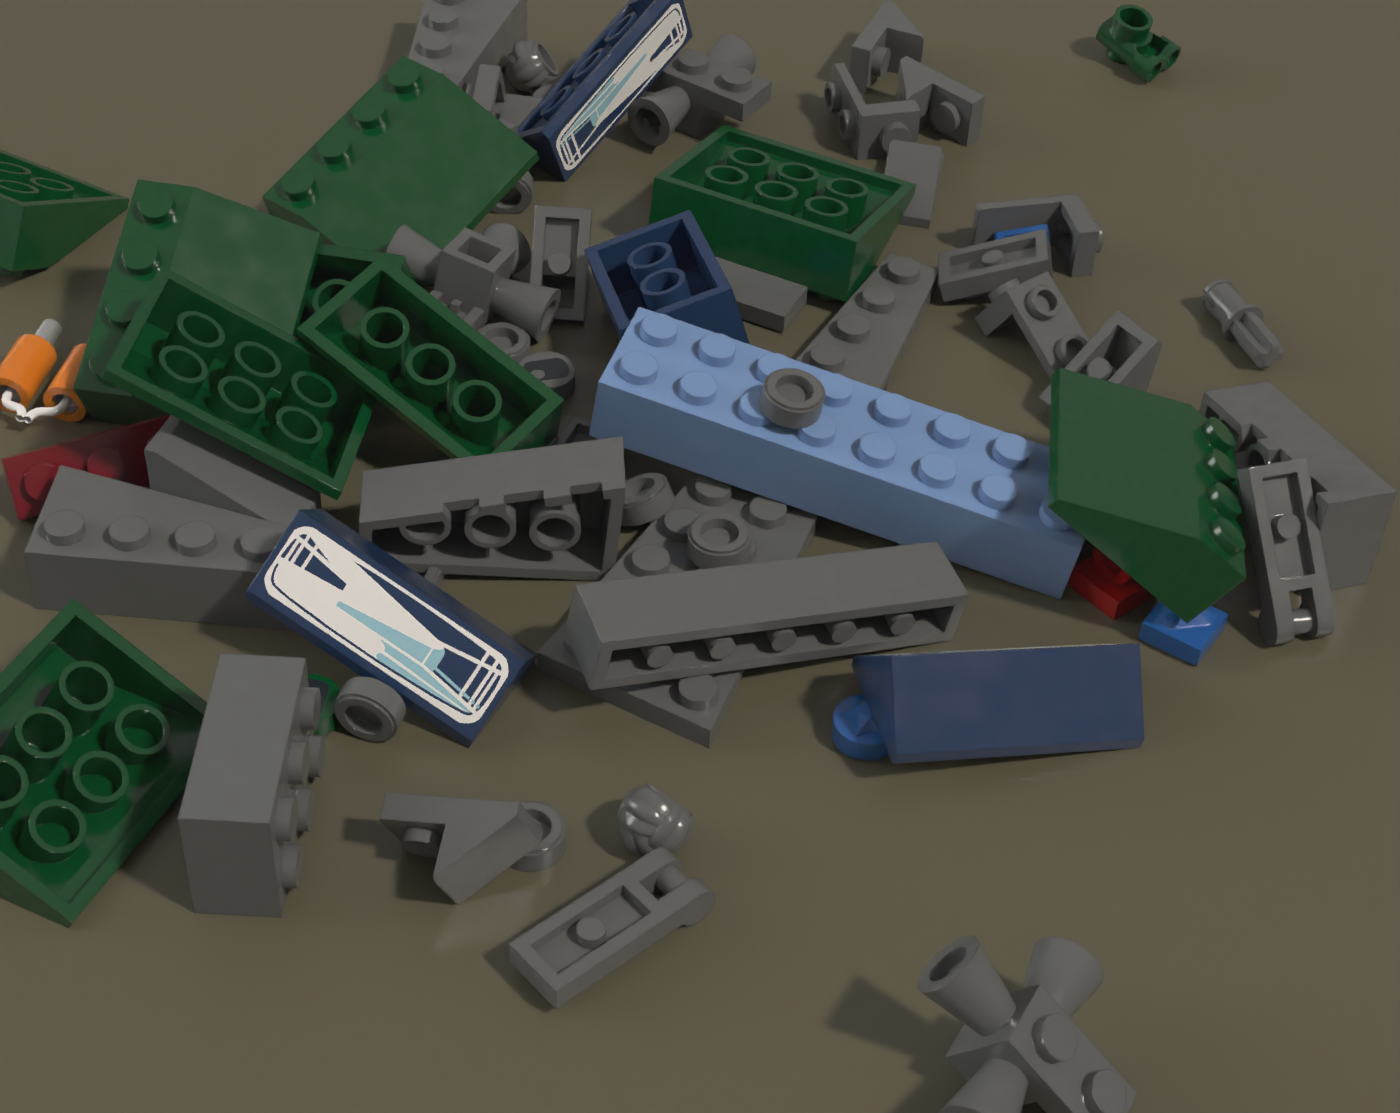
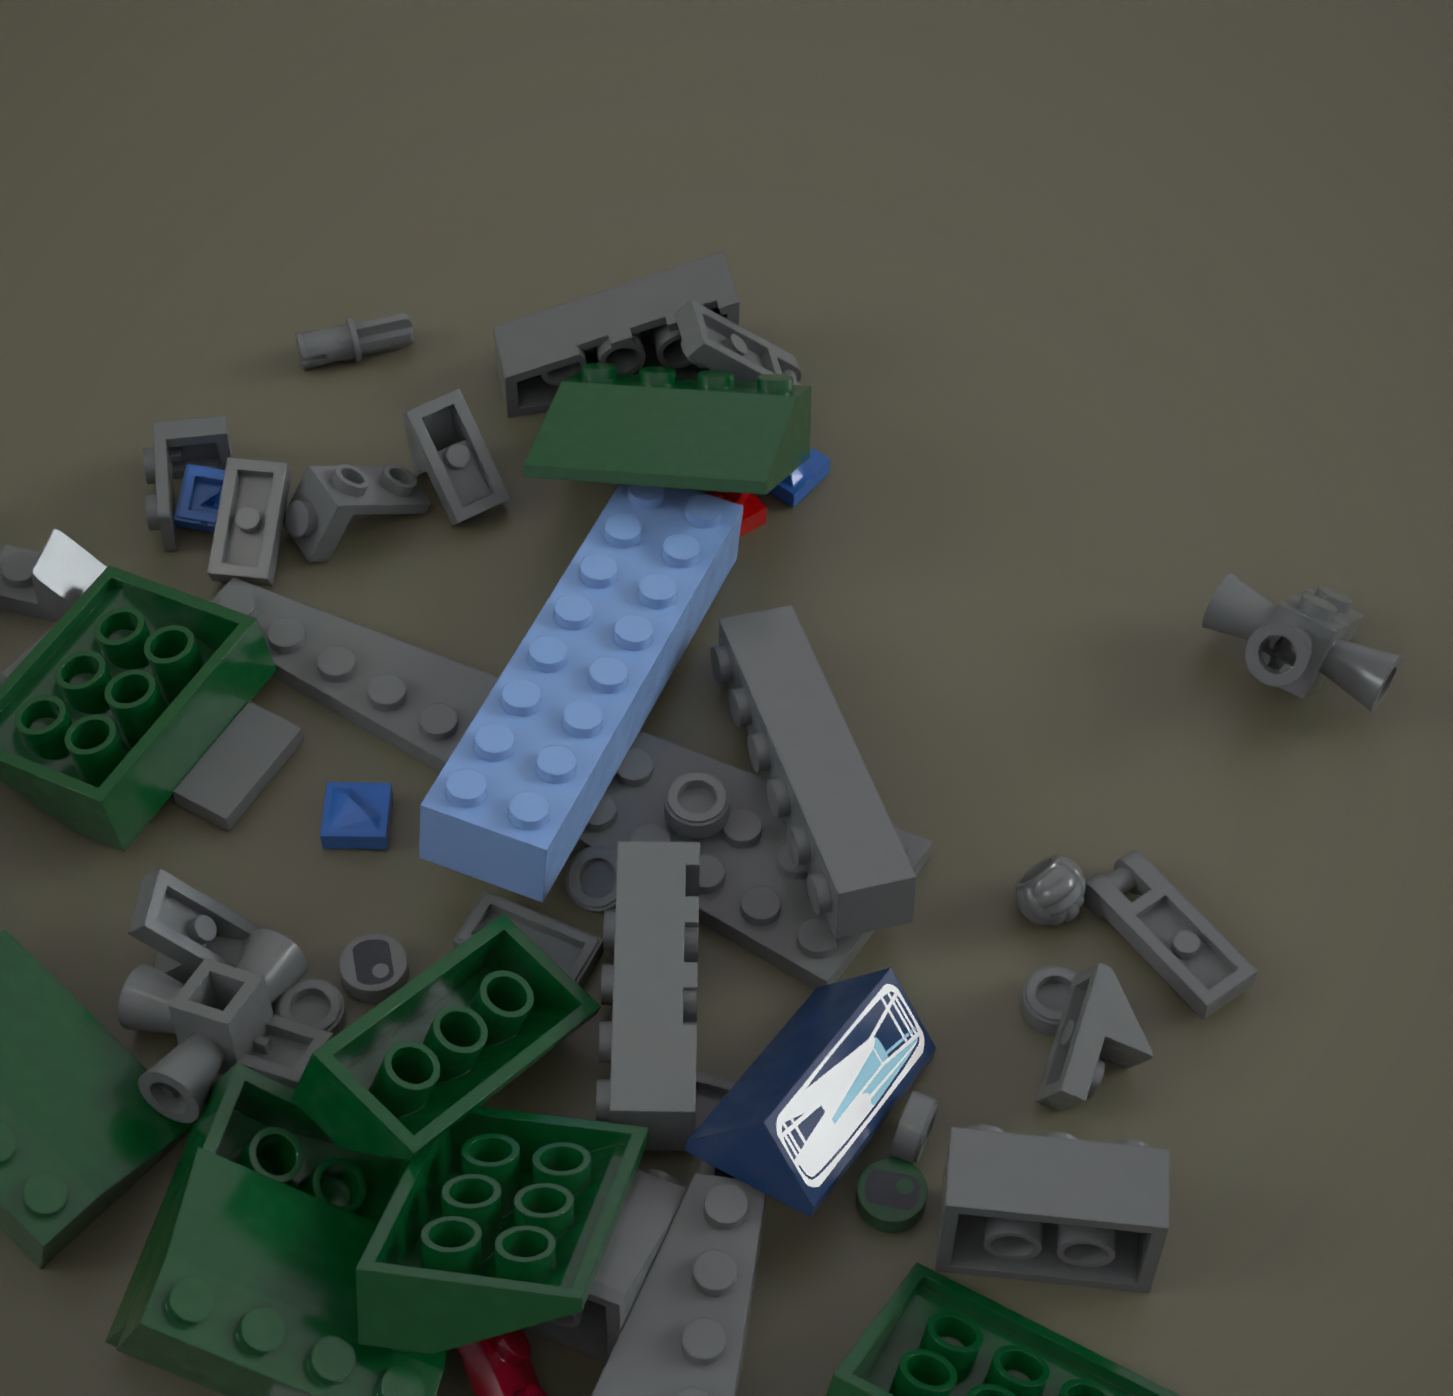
camera: 85 degrees left, 10 degrees up
(667, 272) = (308, 815): dark blue brick -> none
(792, 398) = (584, 681): dark grey tile -> none
(856, 731) = (916, 724): blue tile -> none
(1004, 701) = (892, 608): dark blue slope -> none

